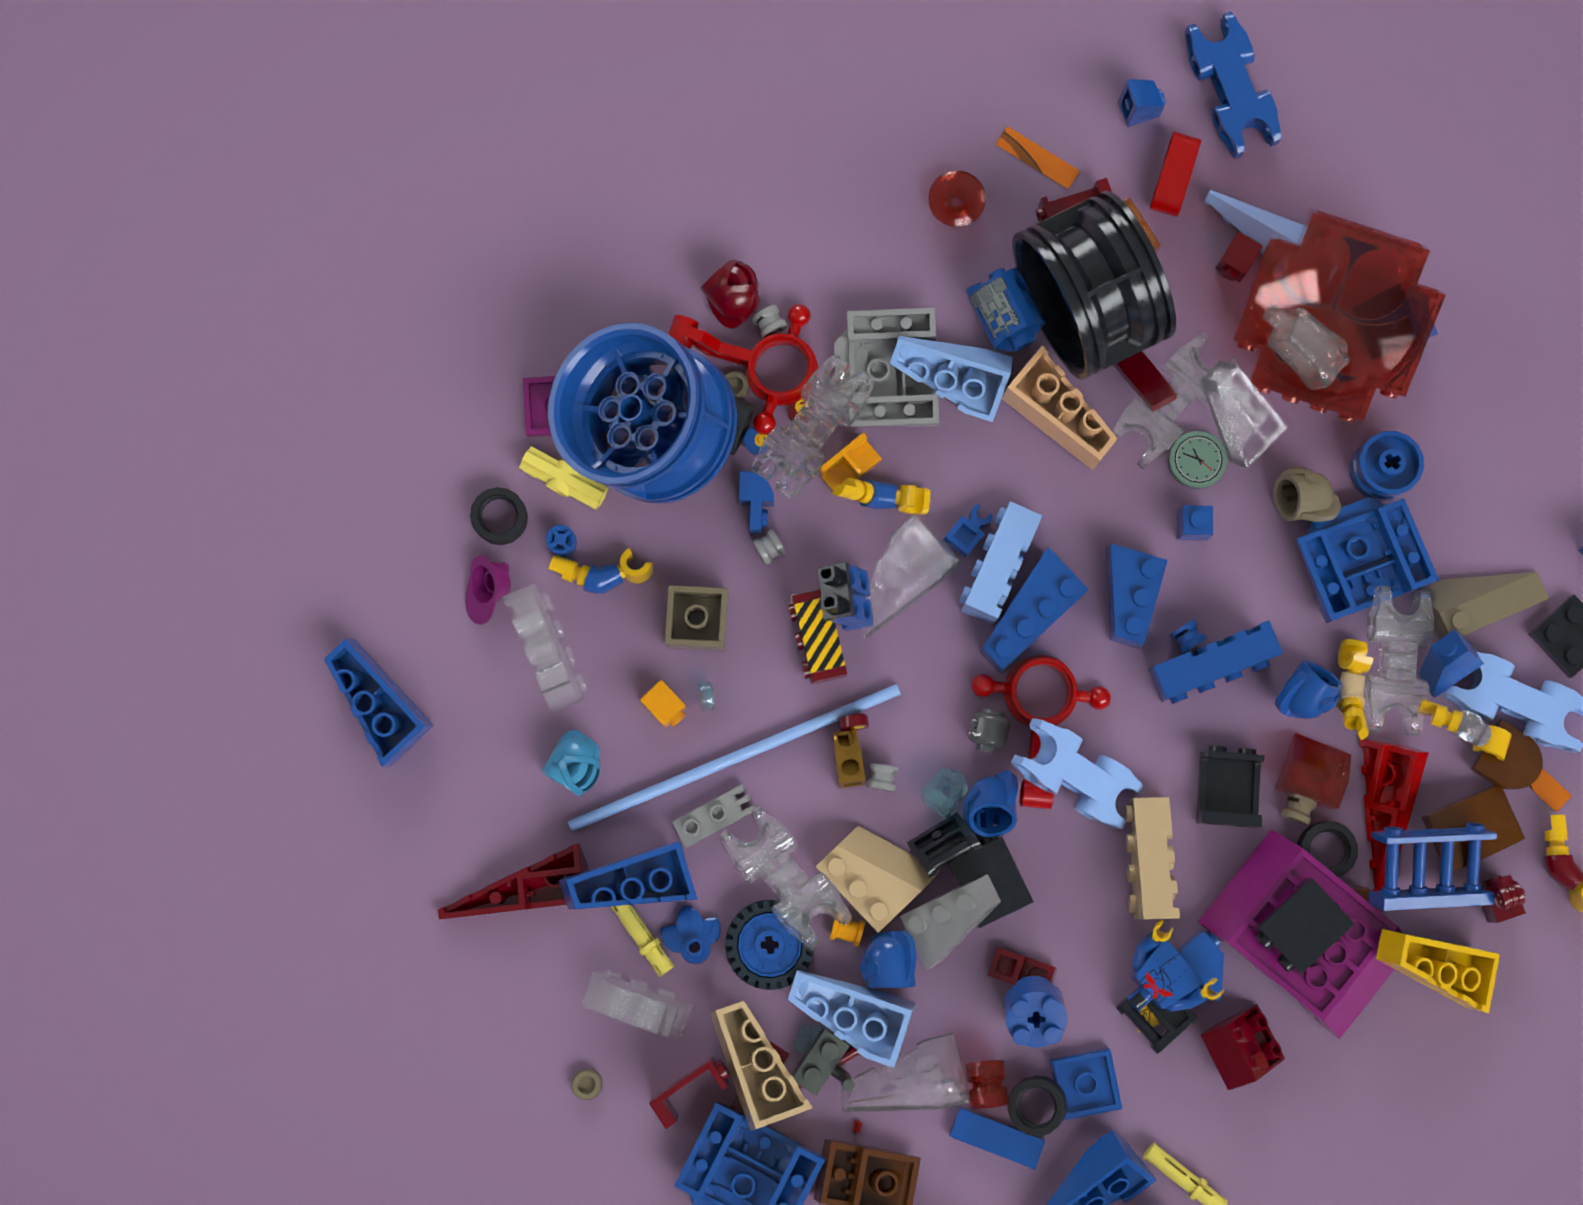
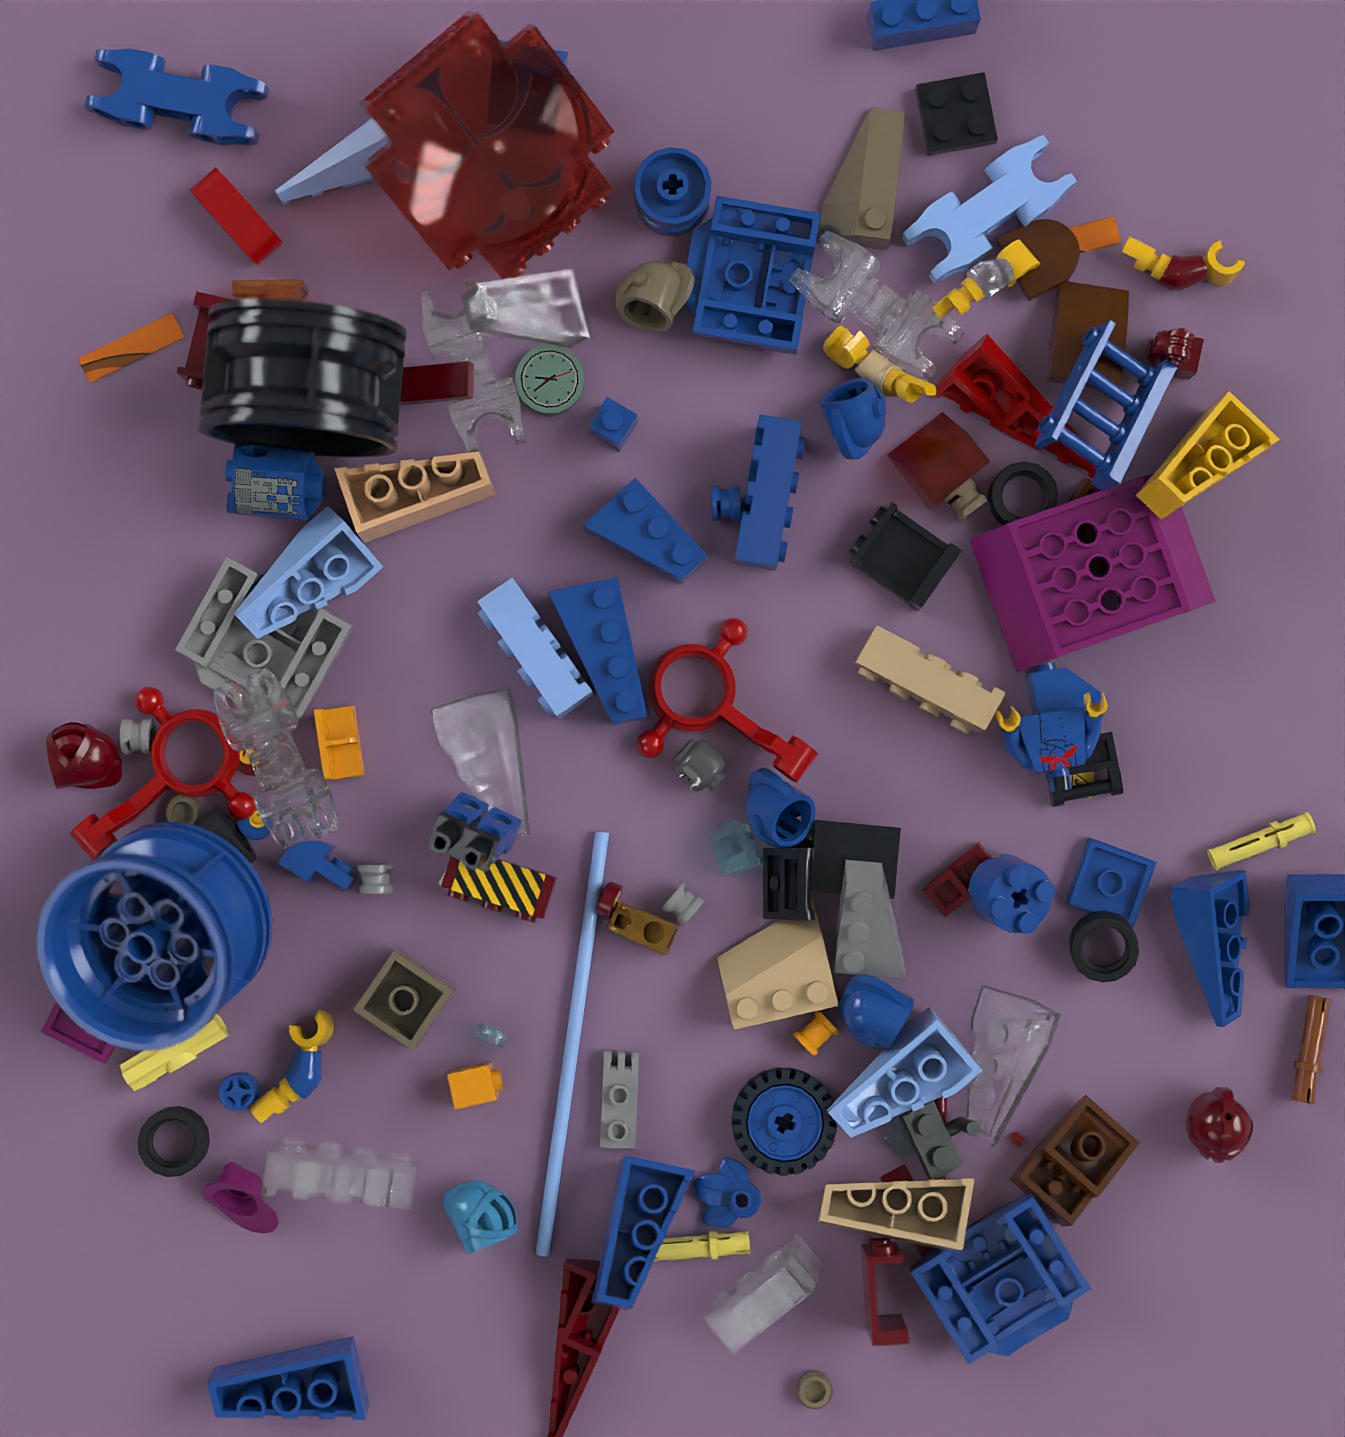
camera: 60 degrees left, 5 degrees up
(799, 895) = (752, 1064): clear piece -> none
(885, 495) = (393, 726): yellow piece -> none
(961, 186) = (110, 450): clear red dish -> none
(966, 532) = (483, 665): blue plate -> none
(987, 1084) = (1053, 985): clear red wheel -> none
(997, 1138) = (1110, 1006): blue tile -> none
(1061, 764) = (778, 718): light blue piece -> none
(1141, 101) = (136, 204): blue slope -> none
(1238, 257) = (364, 206): dark red brick -> none
(1243, 1047) = (1167, 703): dark red slope -> none
(1303, 927) = (1088, 573): black panel -> none
(1307, 346) = (499, 196): clear piece -> none
(1449, 662) = (910, 256): blue slope -> none

